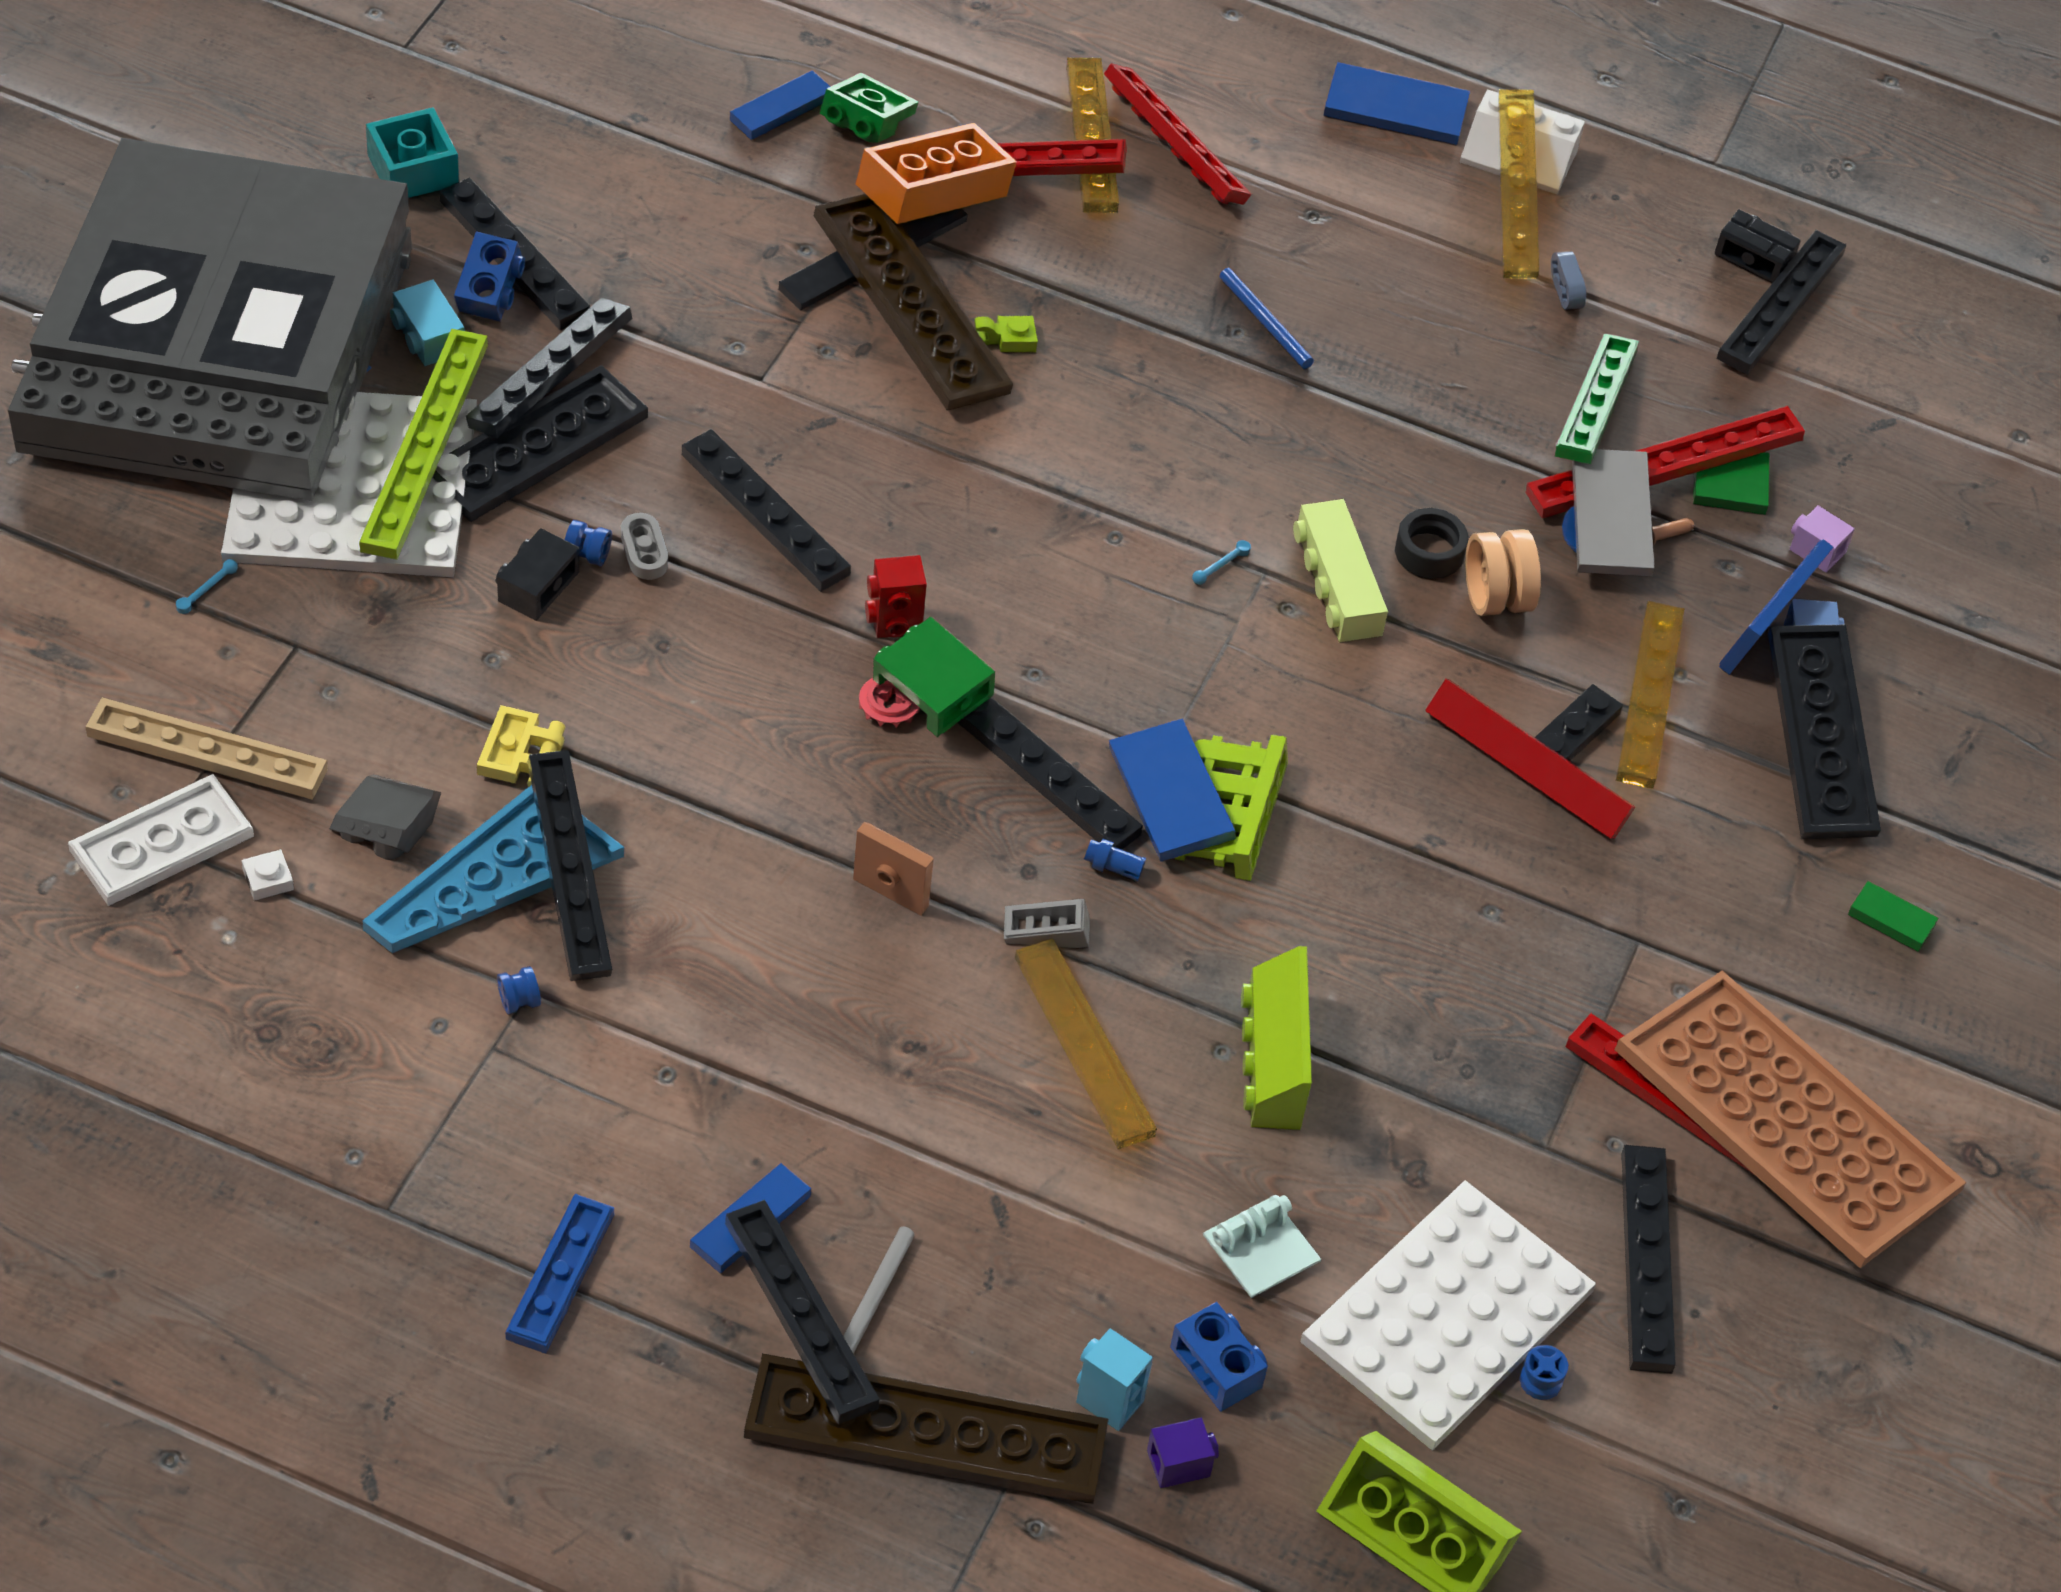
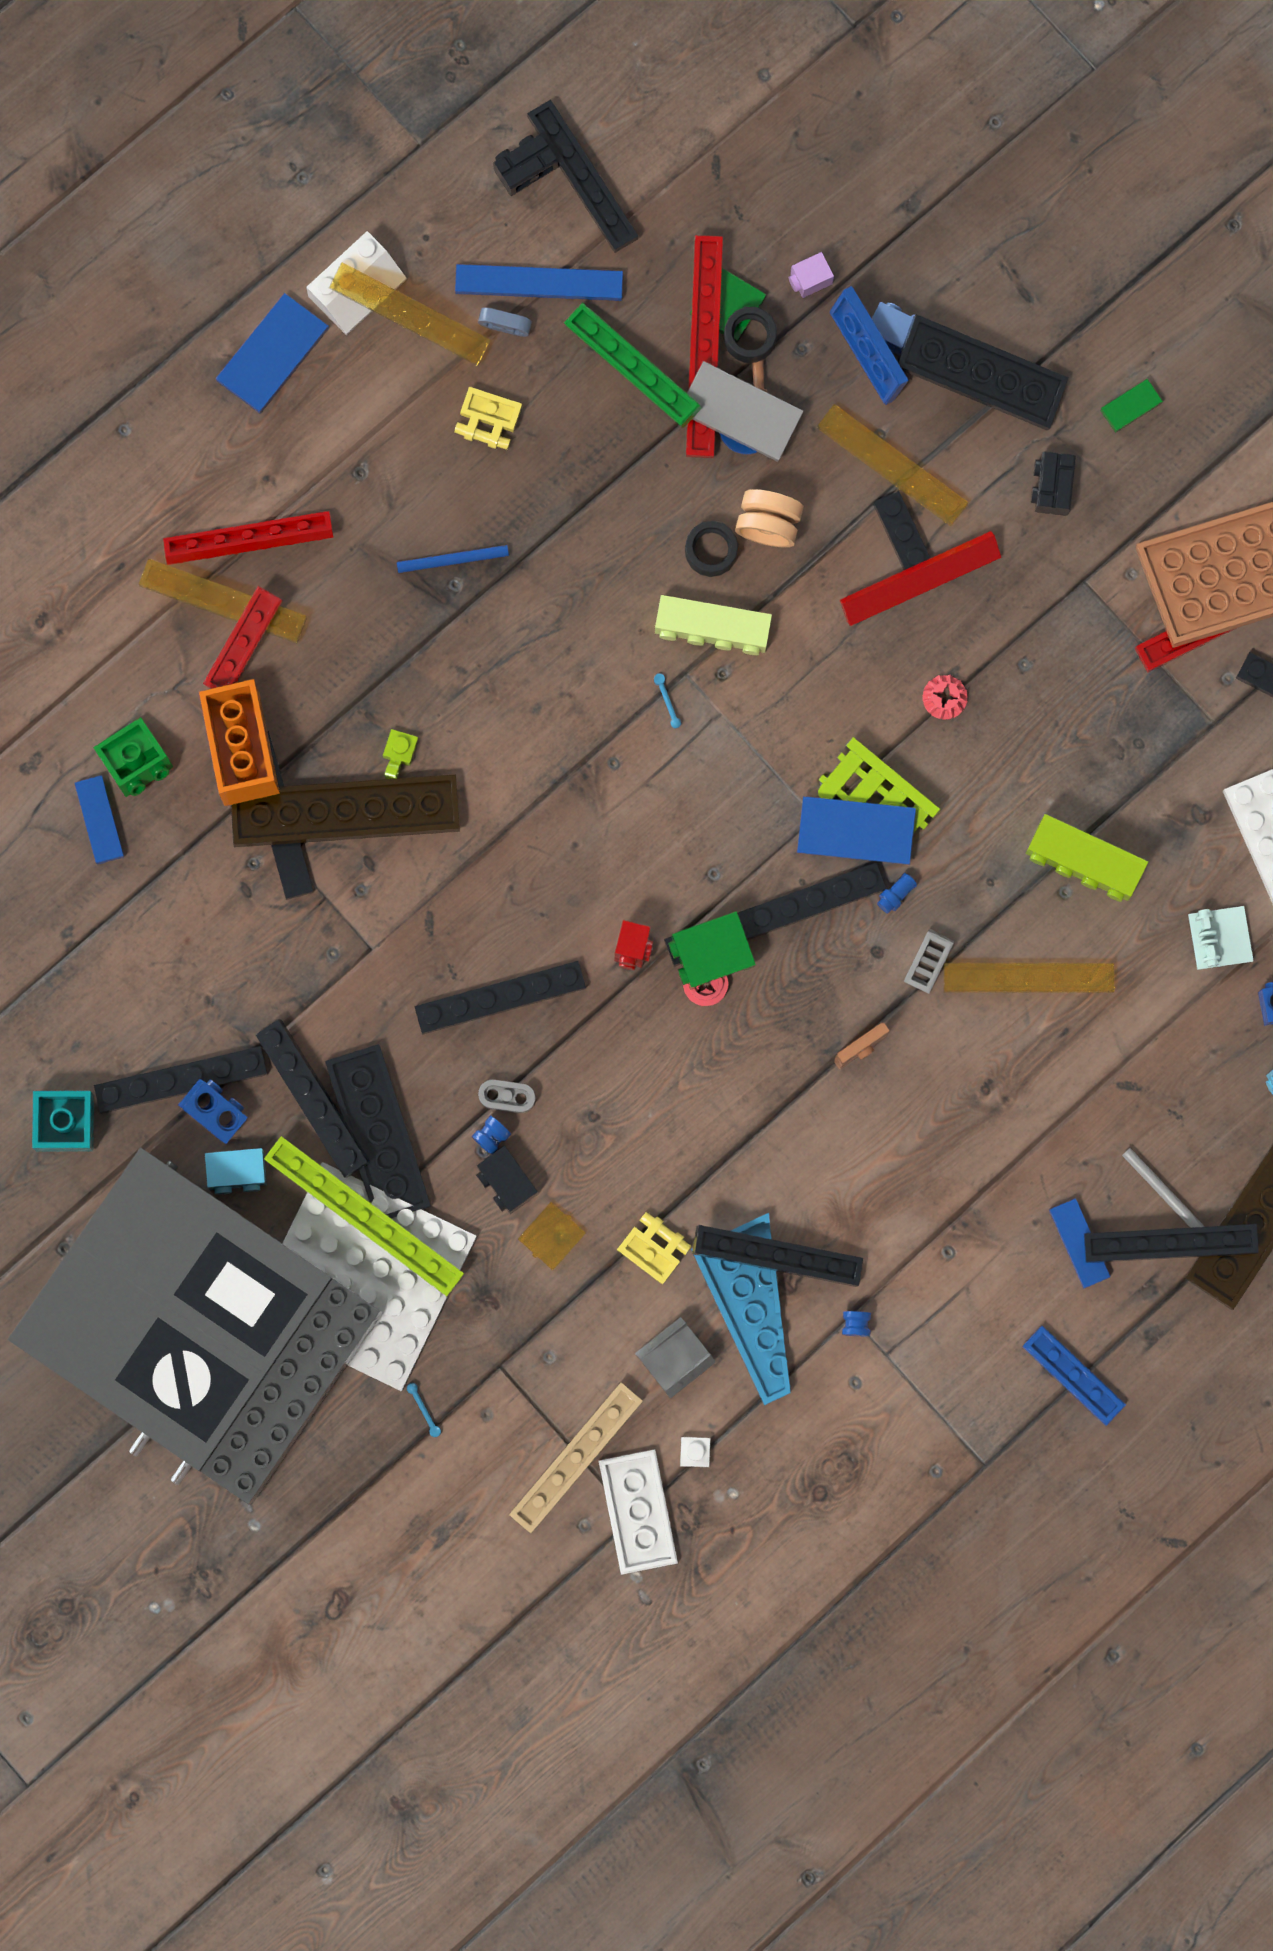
camera: 65 degrees left, 30 degrees up
(488, 647) = (551, 1236): none -> clear yellow piece
(1387, 845) = (952, 707): none -> coral gear
(1459, 299) = (490, 410): none -> light yellow plate
(1635, 303) = (539, 282): none -> blue tile
(1714, 476) = (750, 313): none -> black tyre
(1739, 859) = (1055, 483): none -> black brick

